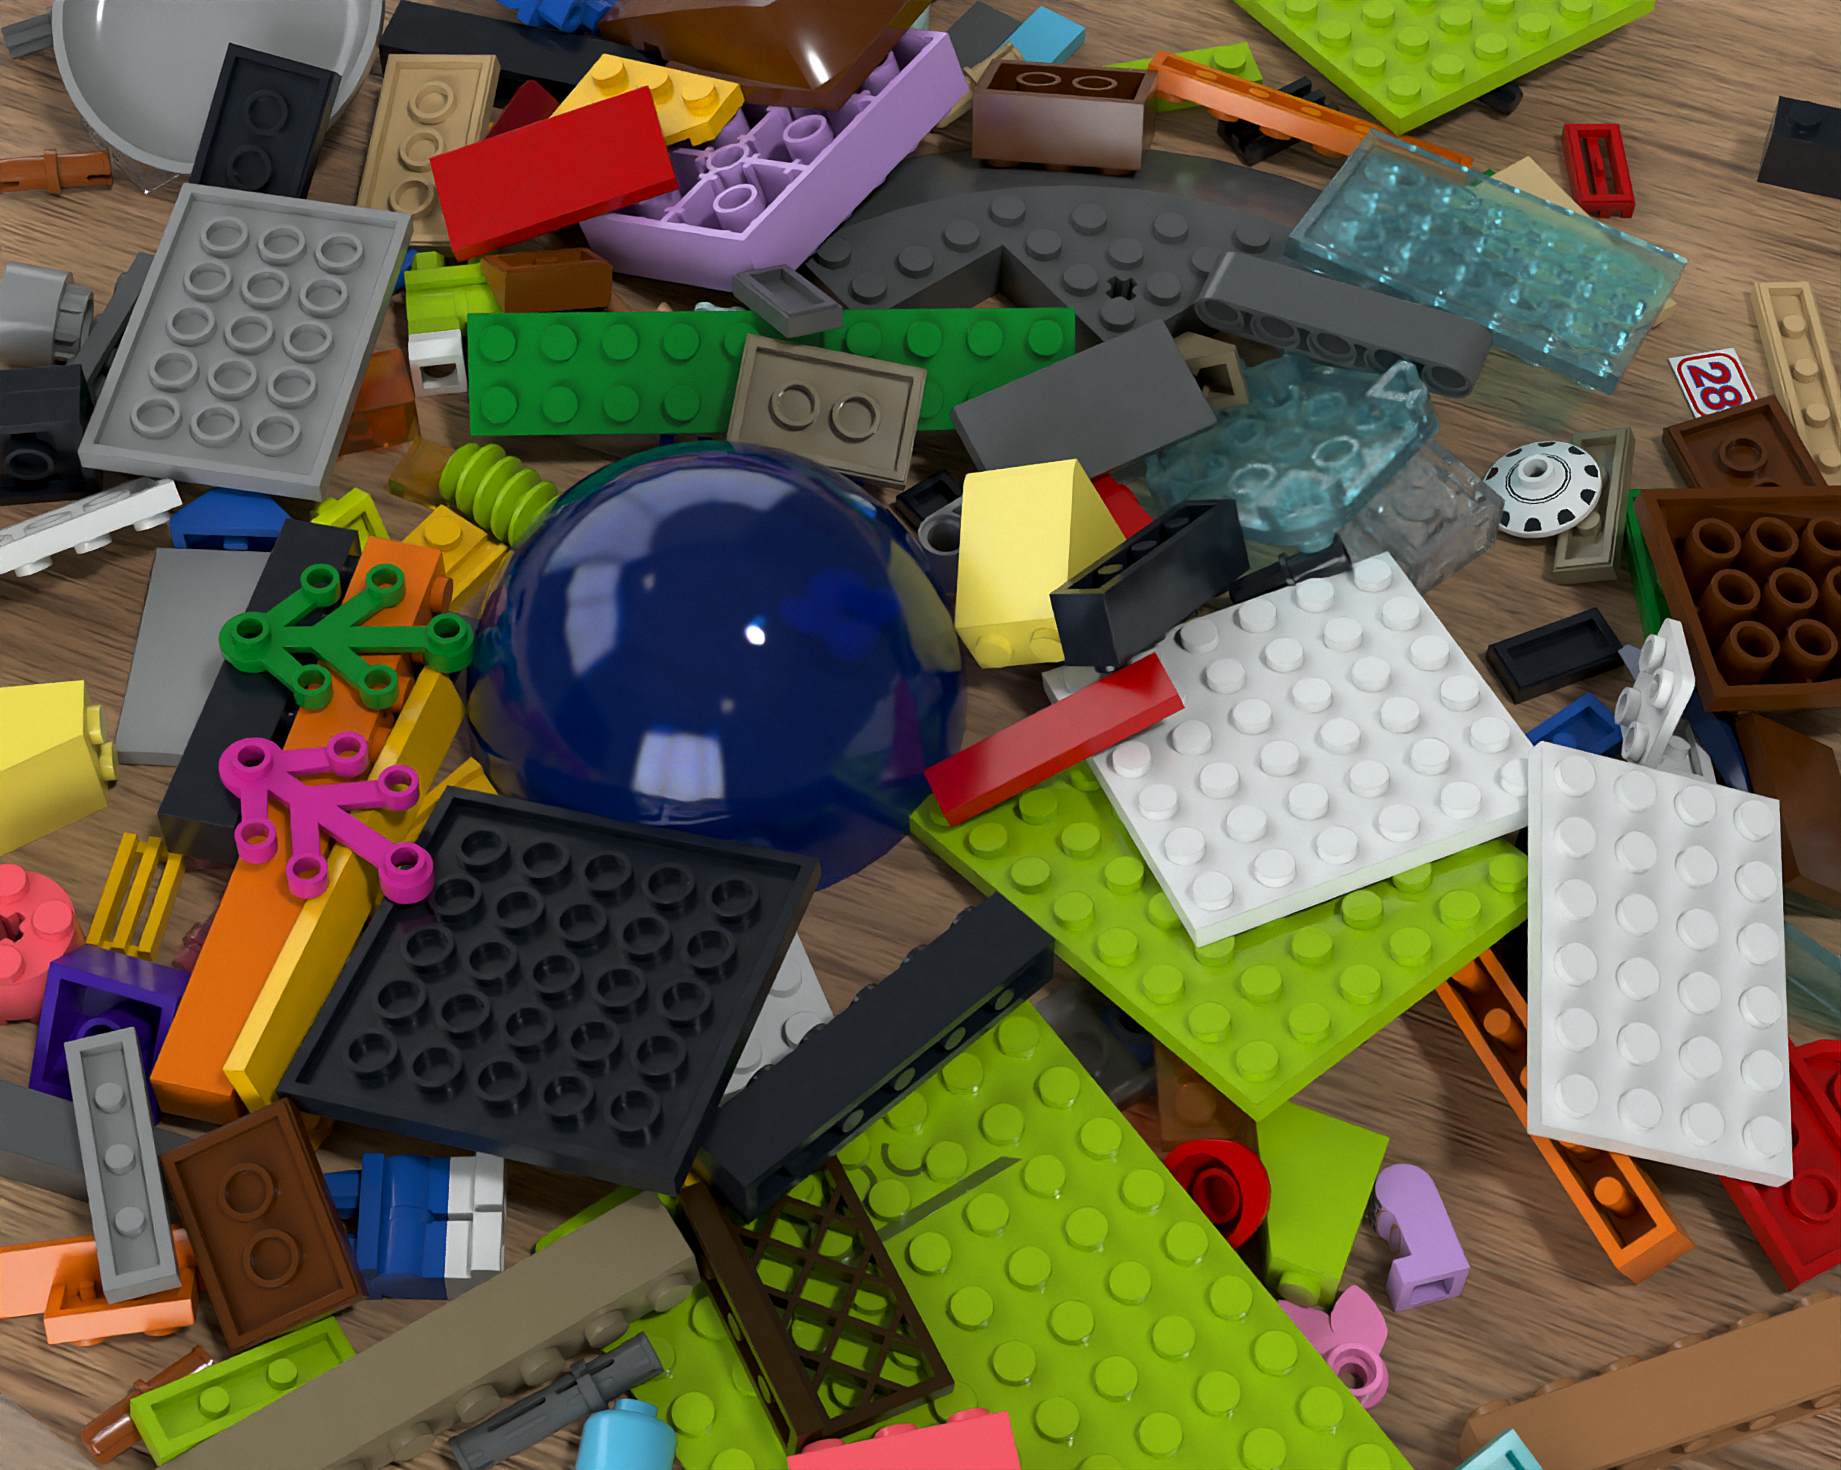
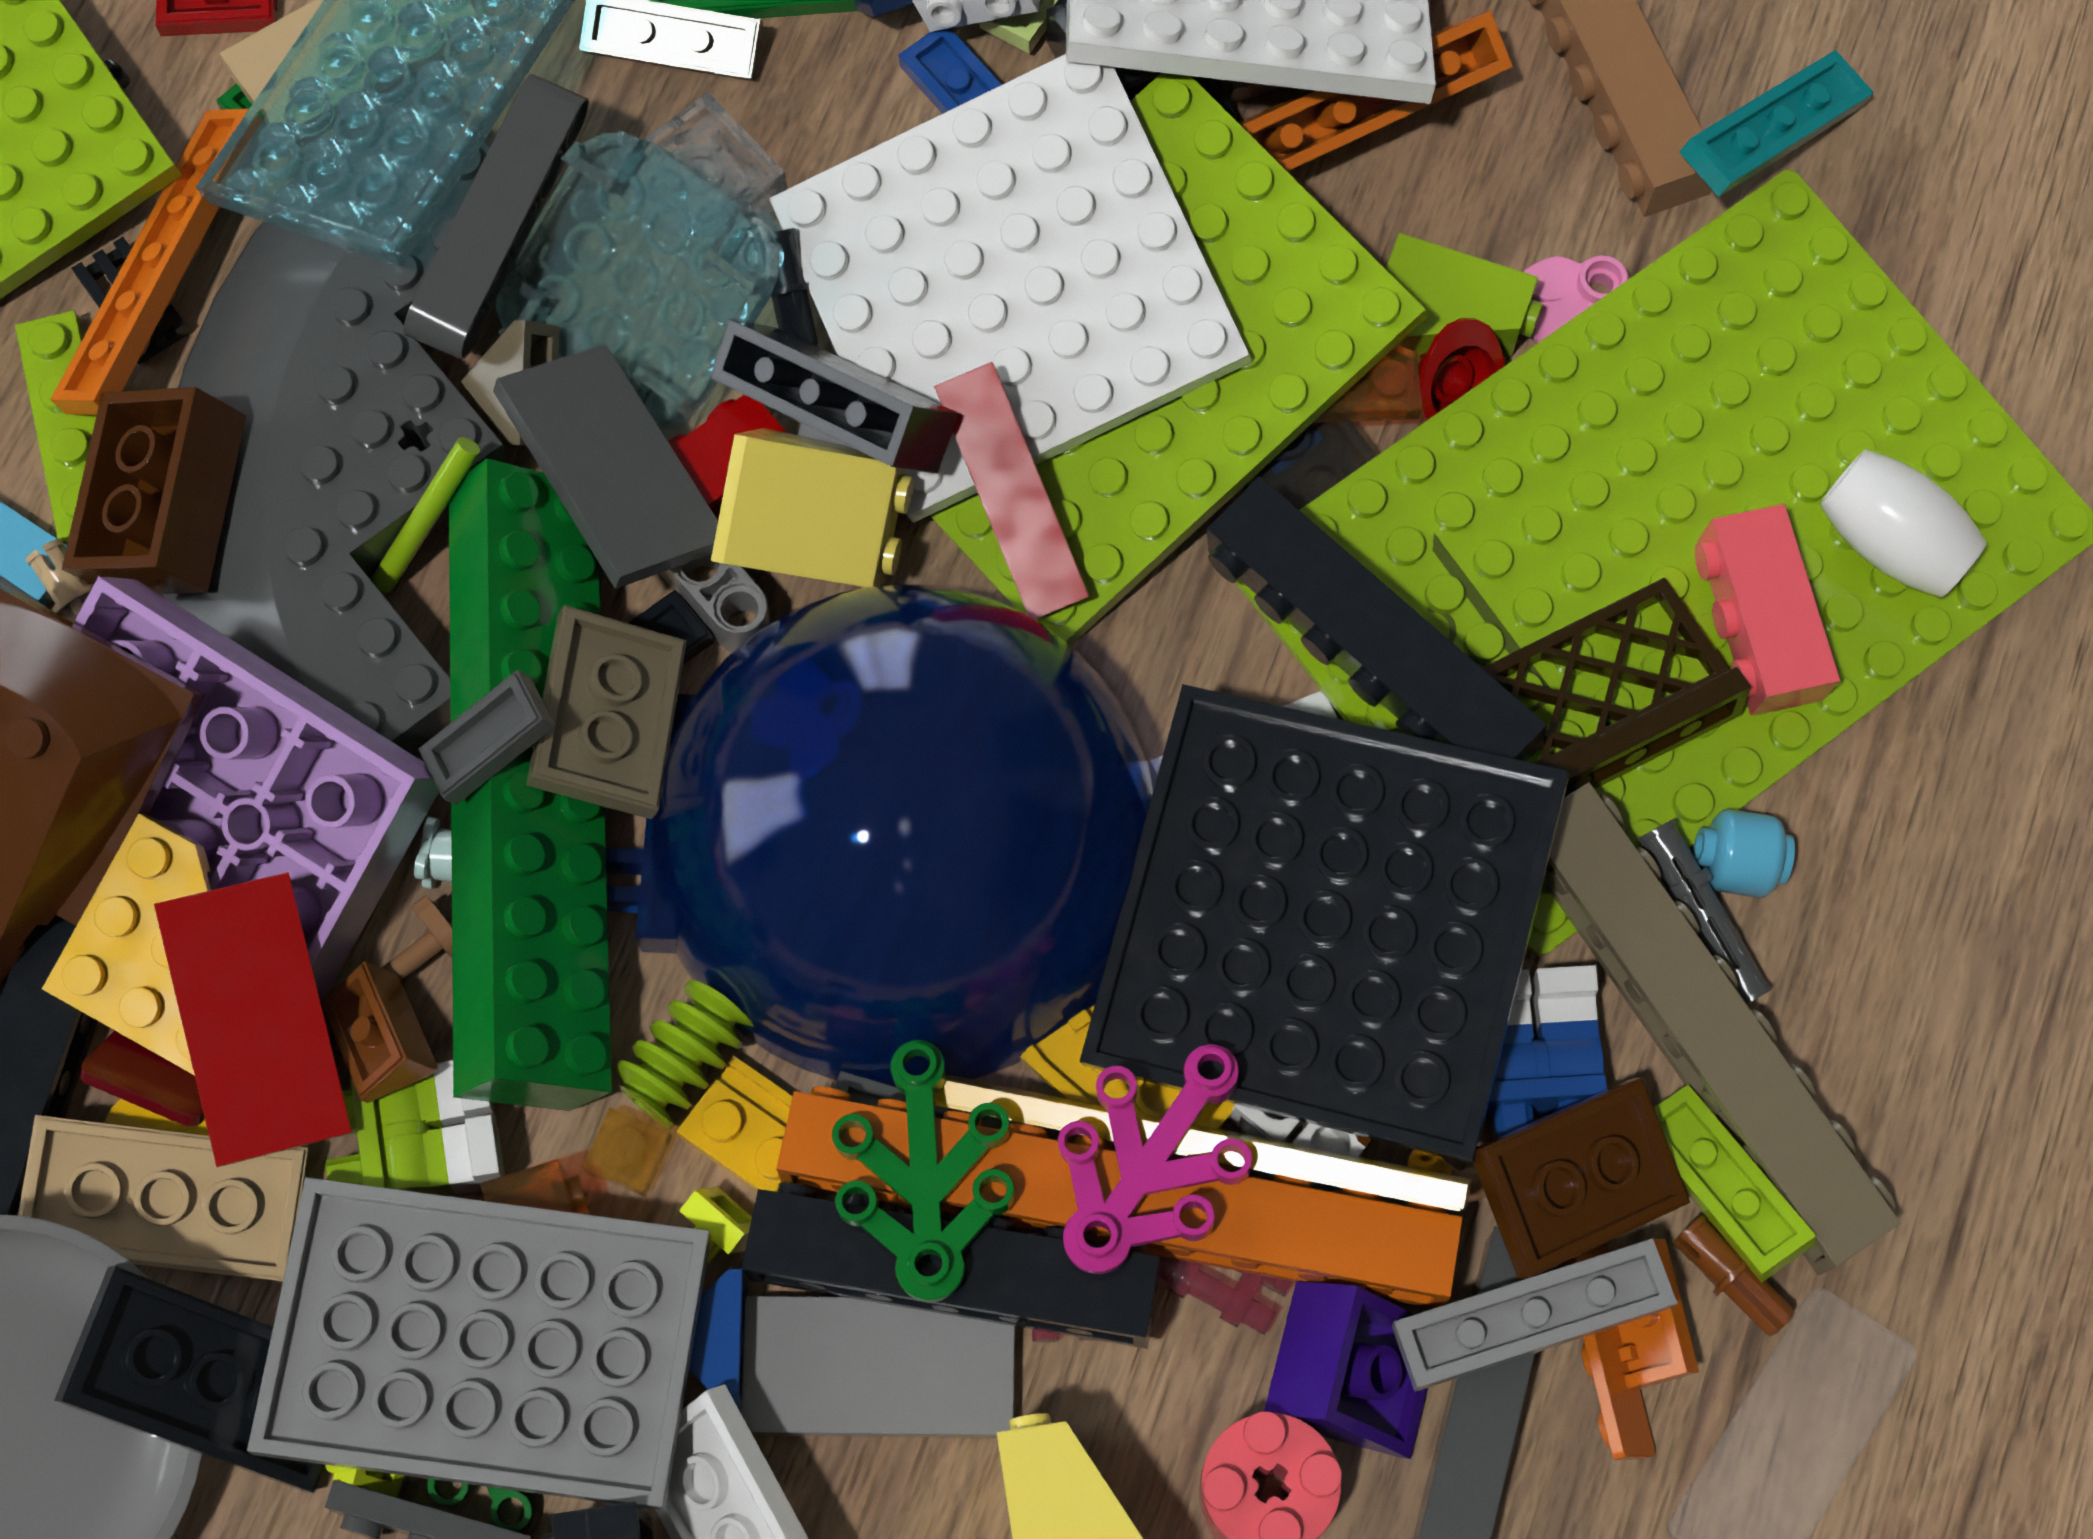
camera: 90 degrees left, 15 degrees up
(115, 890) = (1187, 1356): yellow tile -> none
(1044, 297) = (425, 514): none -> lime bar
(1420, 1236) = (1480, 223): lavender leg -> none
(1545, 488) = (680, 78): white dish -> none
(1555, 655) = (844, 85): black tile -> none

